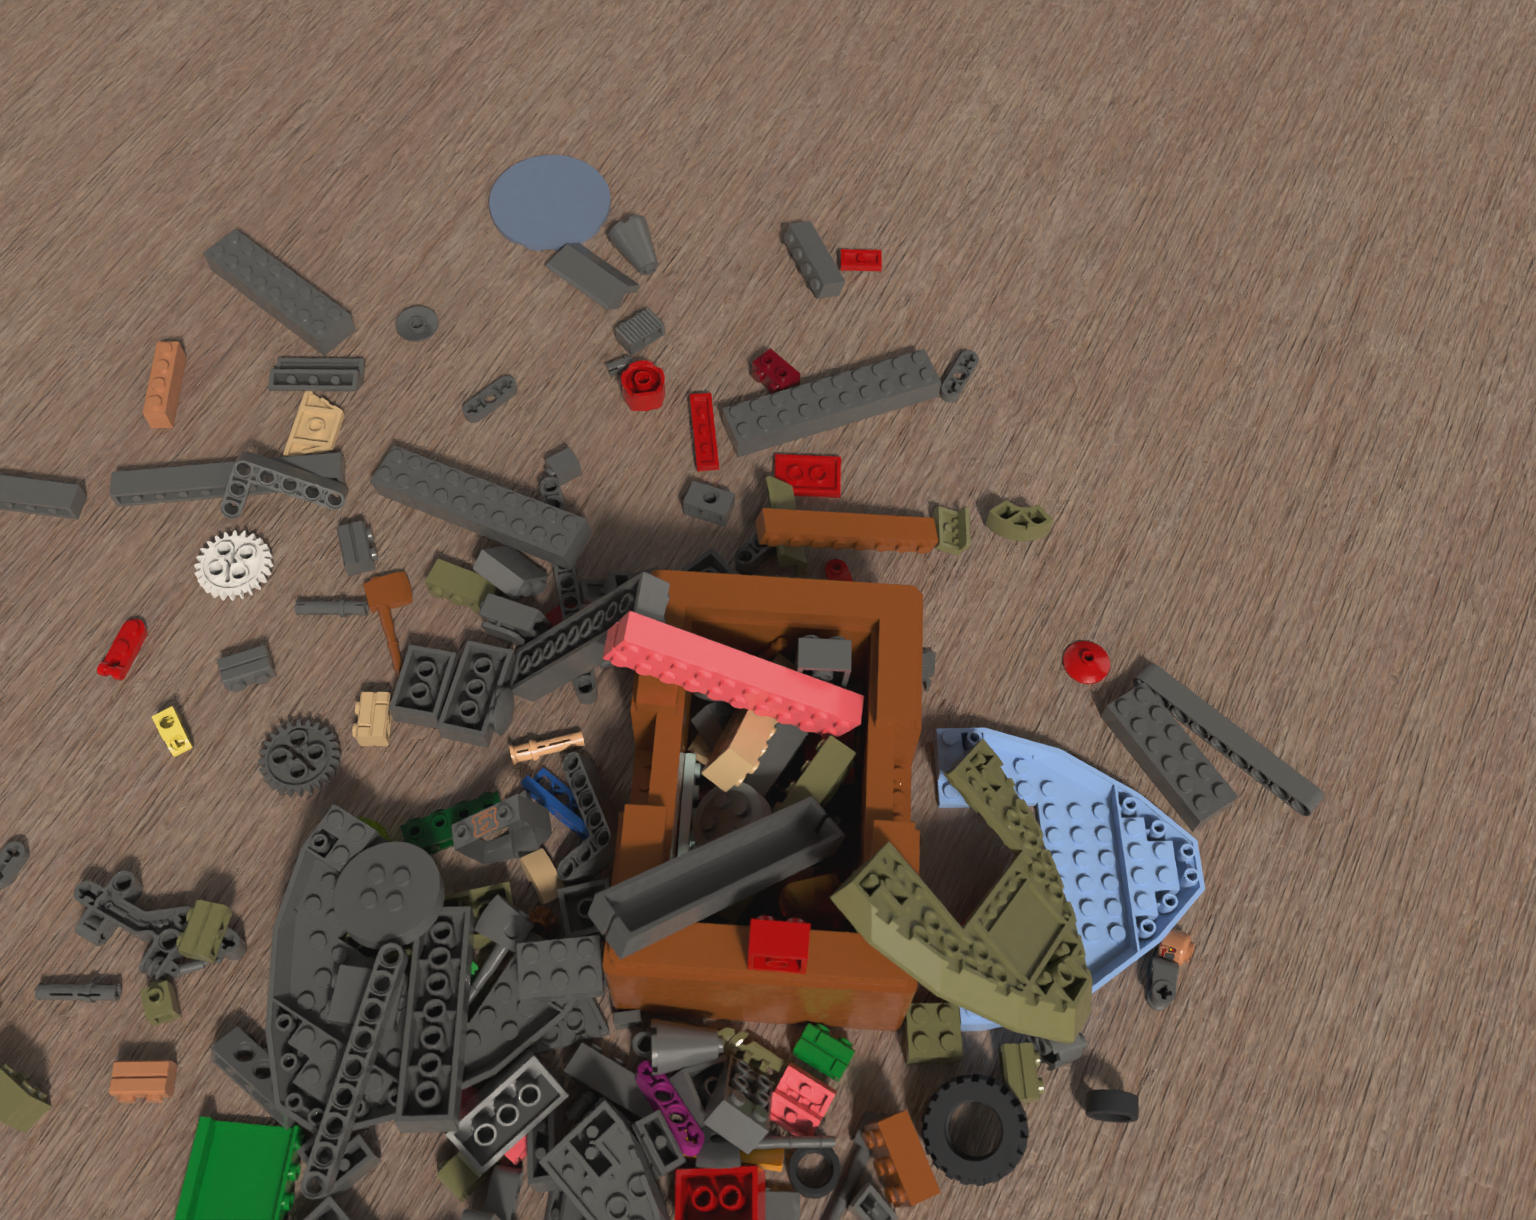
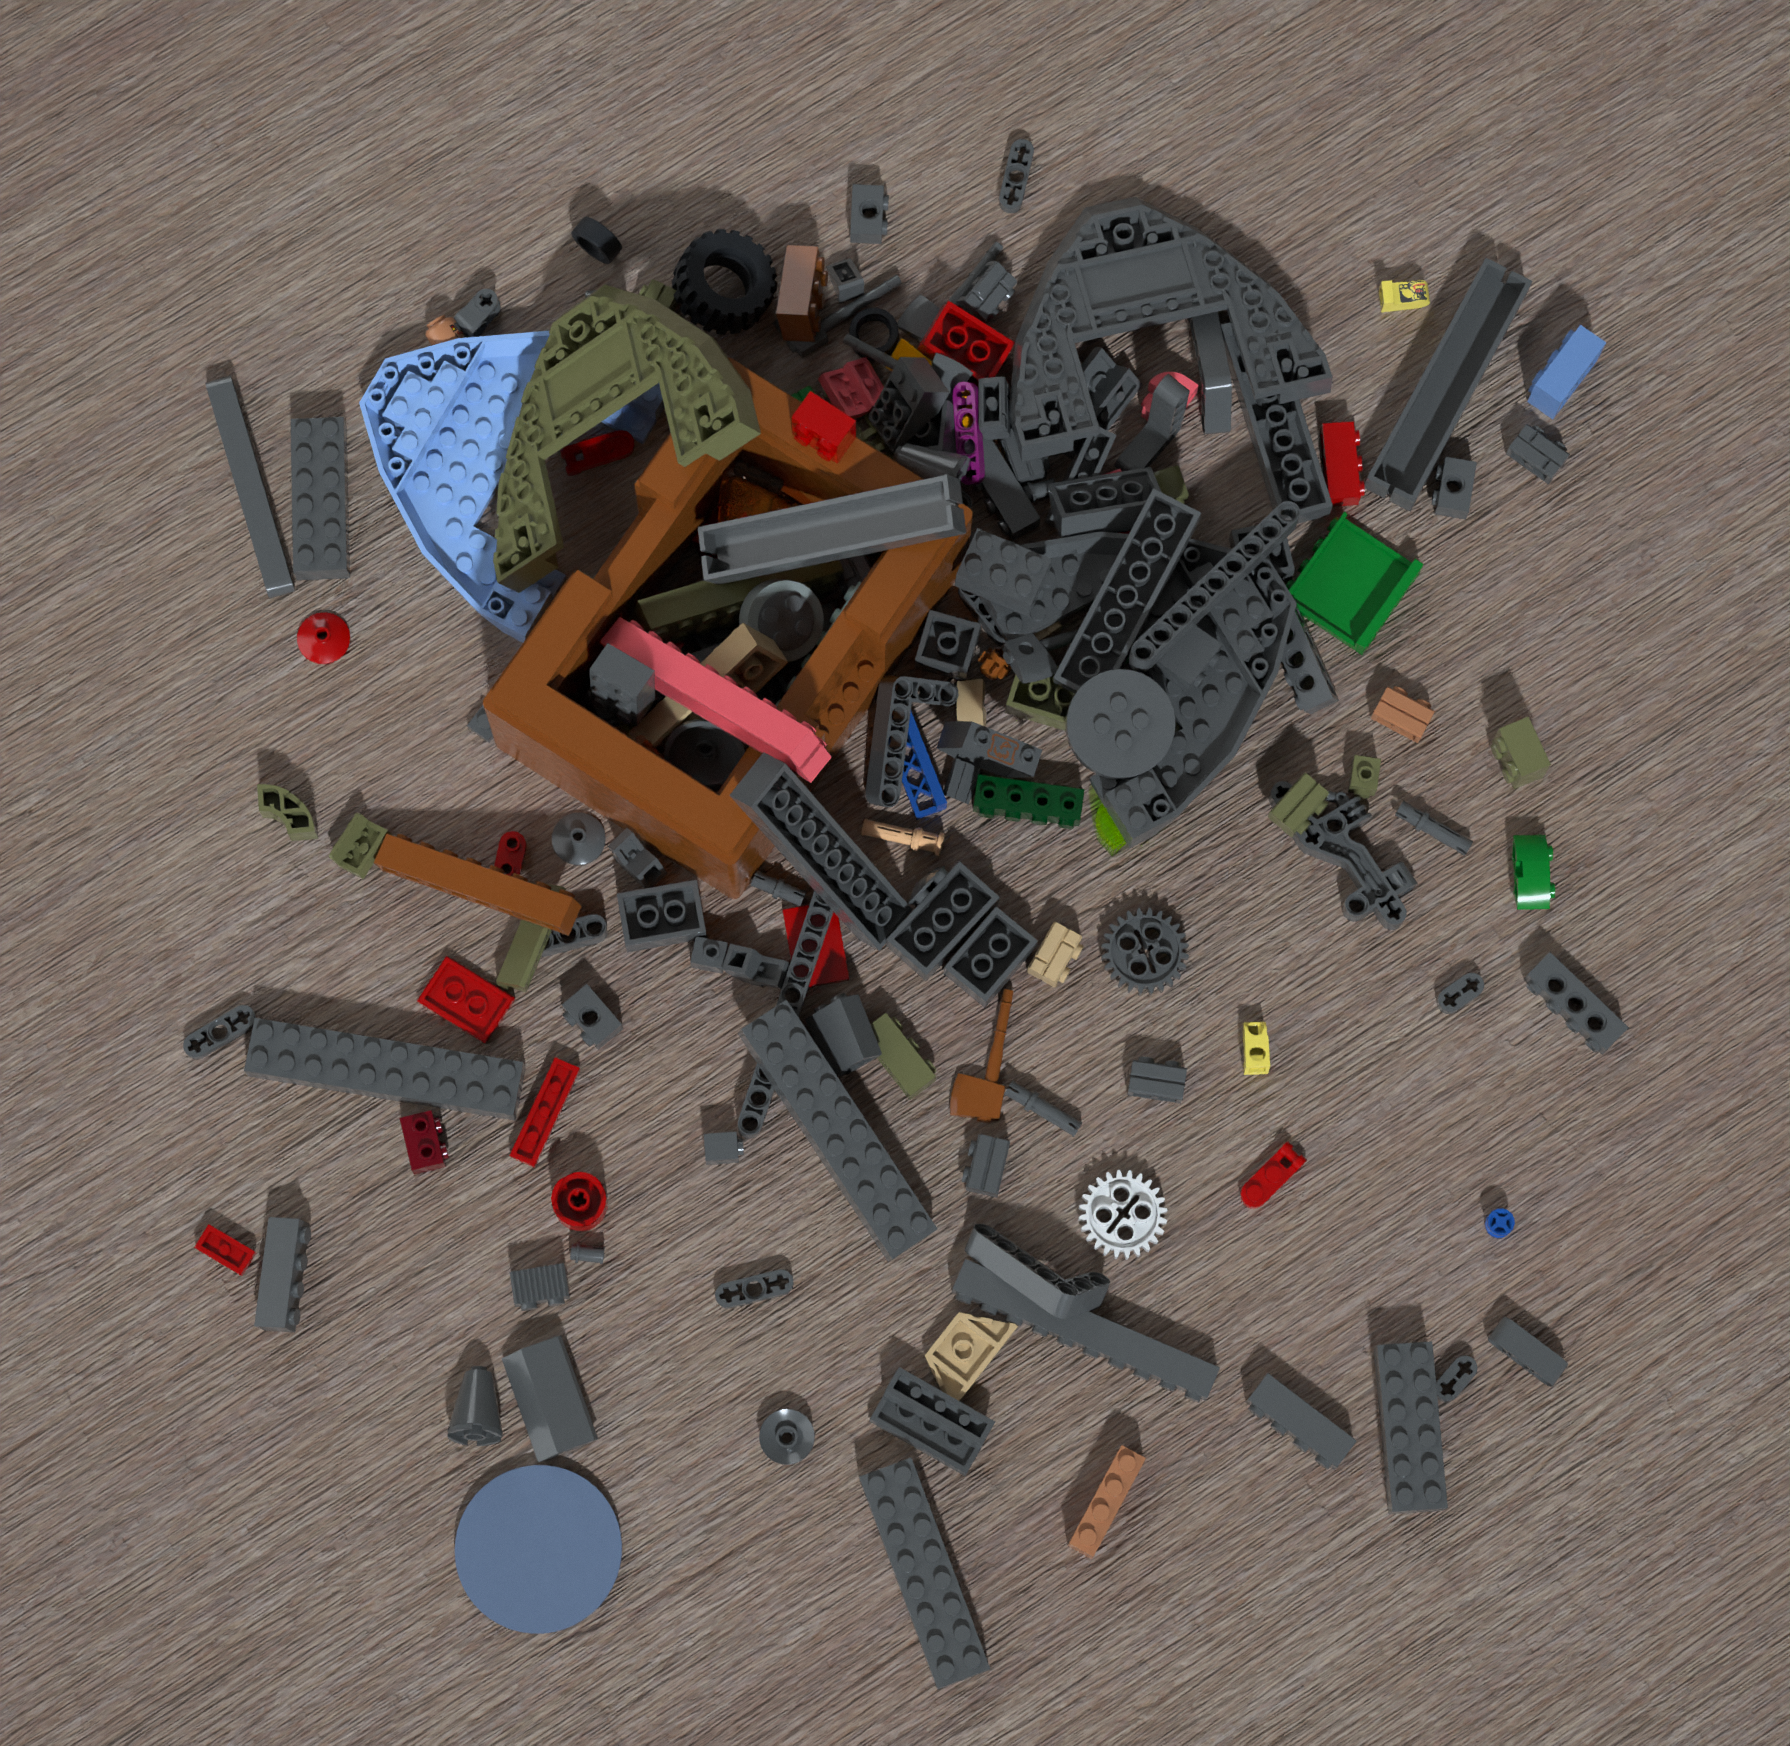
camera: 150 degrees left, 15 degrees up
(512, 621) = (870, 974): dark grey brick -> none

